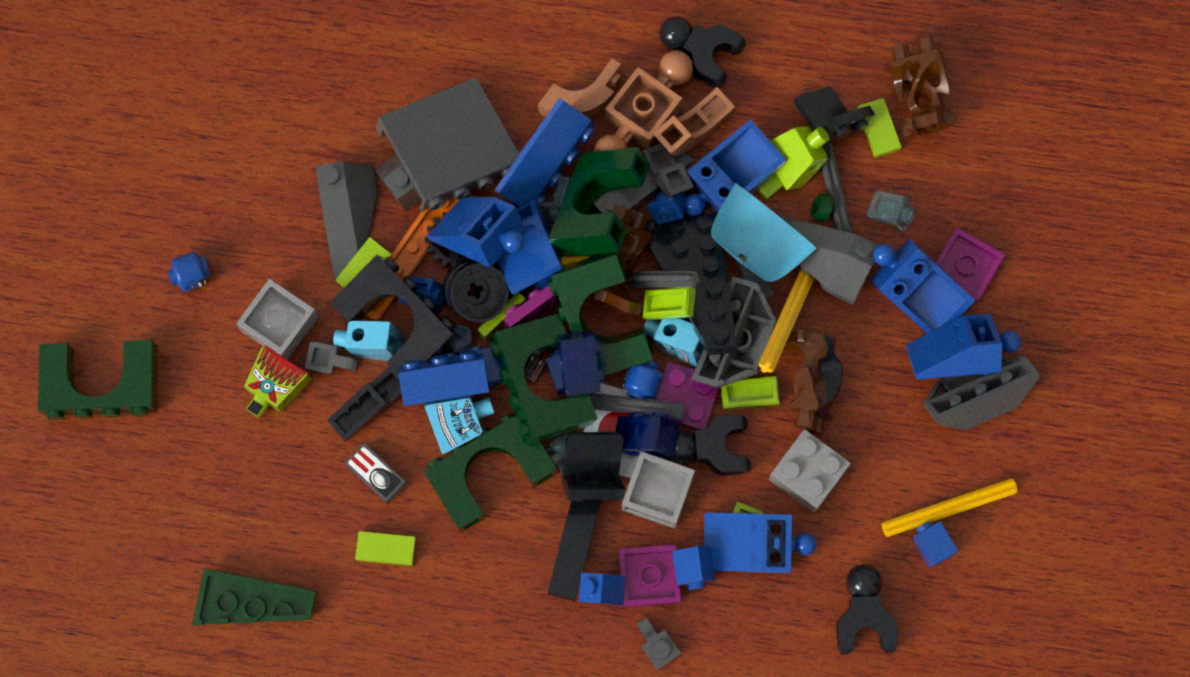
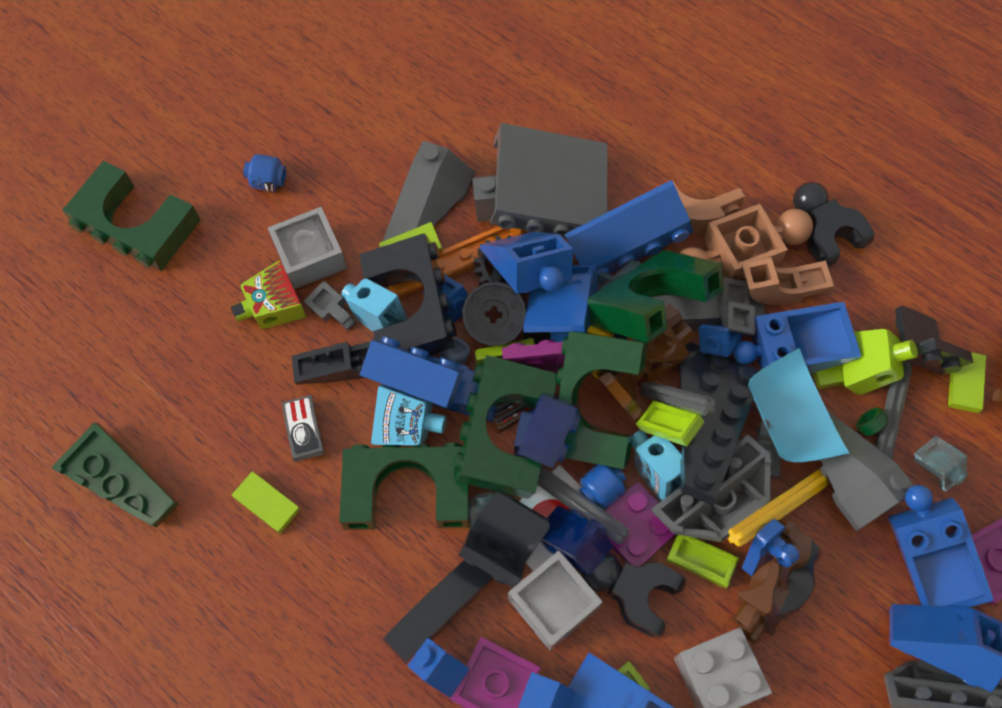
camera: 30 degrees right, 10 degrees down
(792, 357) = (769, 544): none -> blue piece

